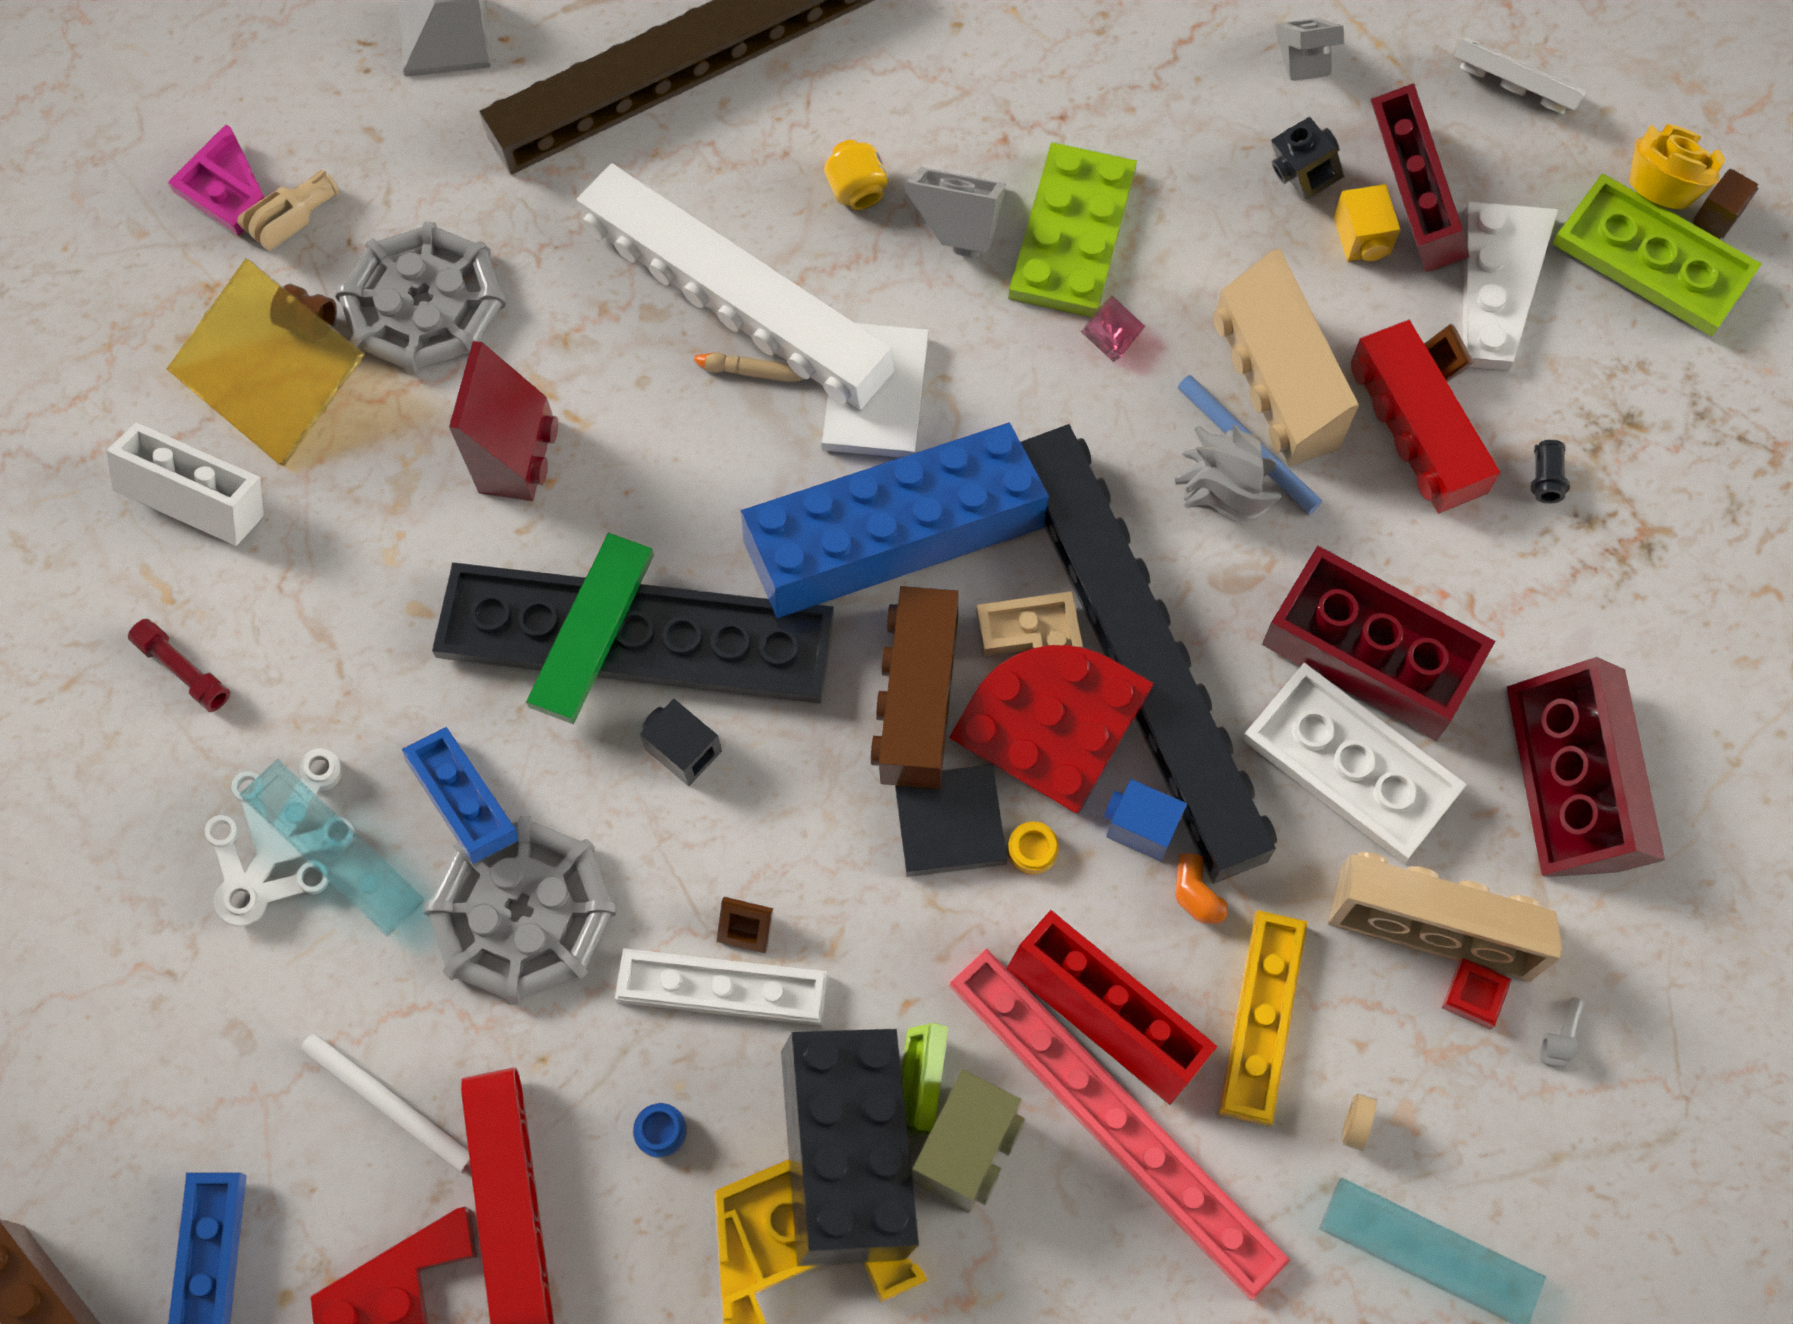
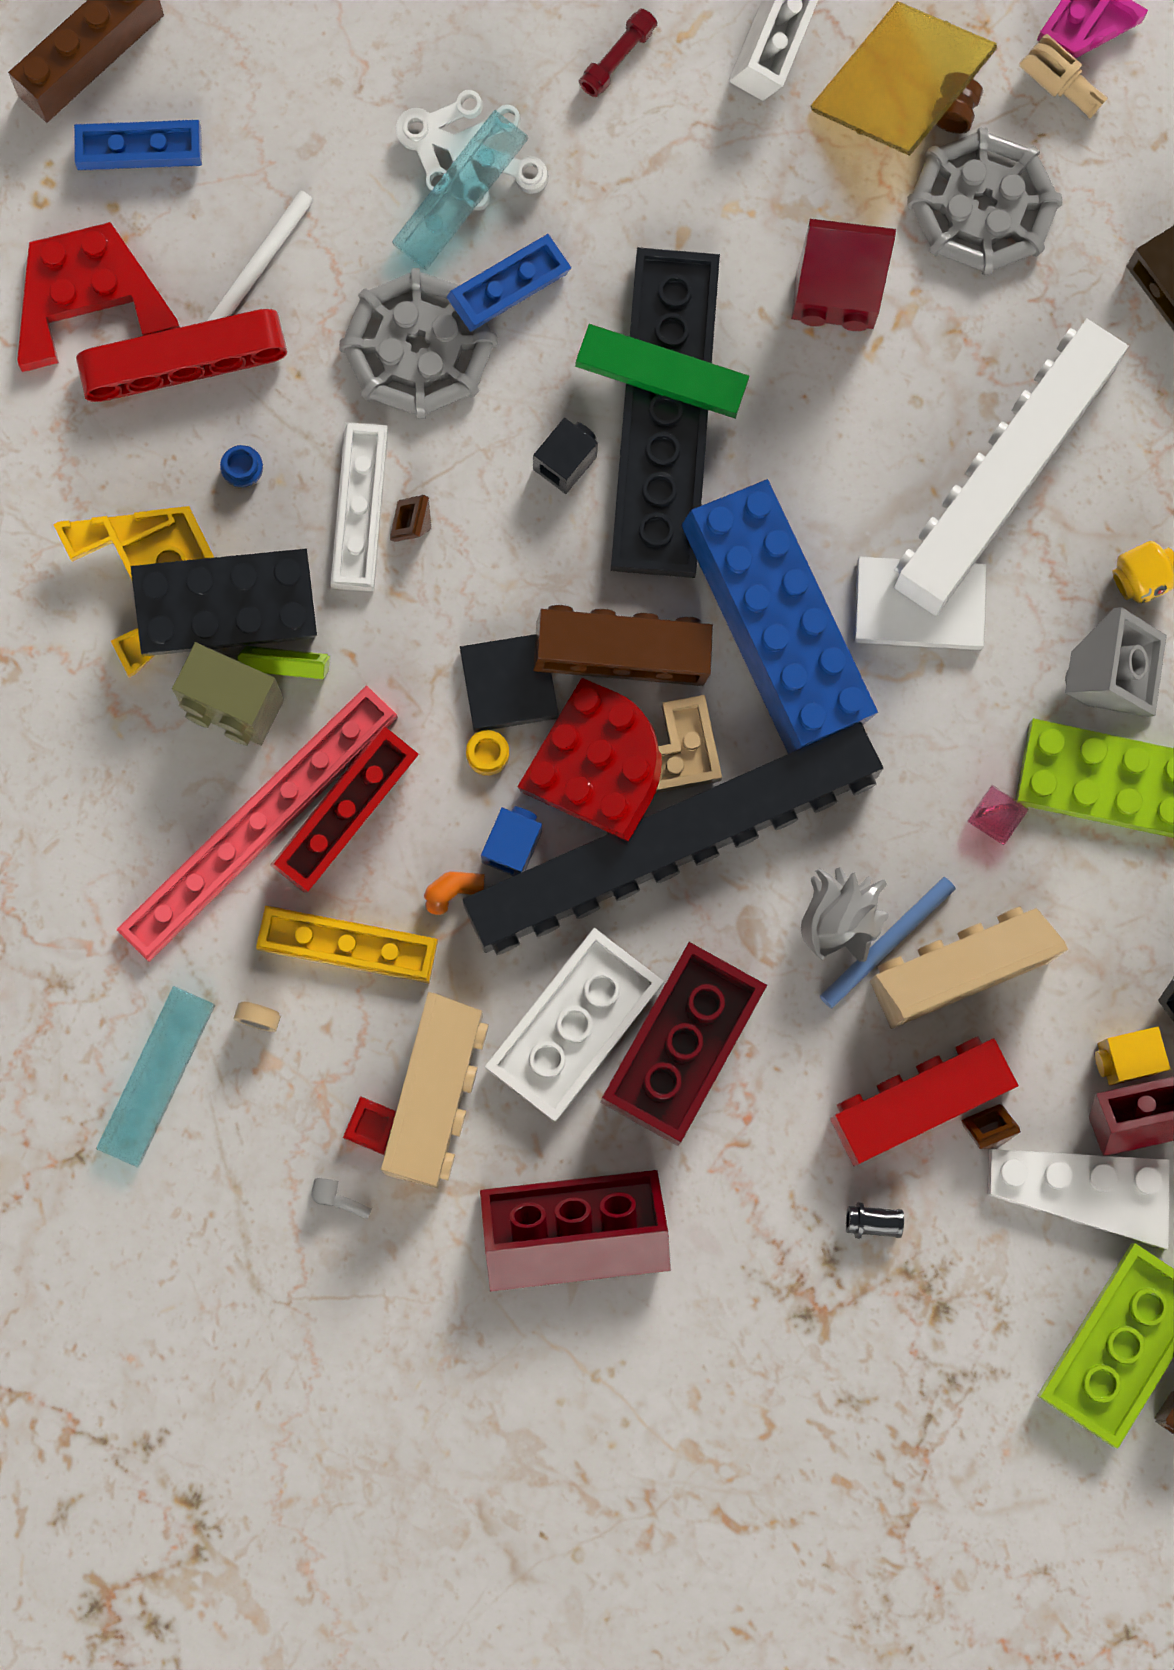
camera: 80 degrees right, 10 degrees up
(719, 362) = (935, 491): tan piece -> none

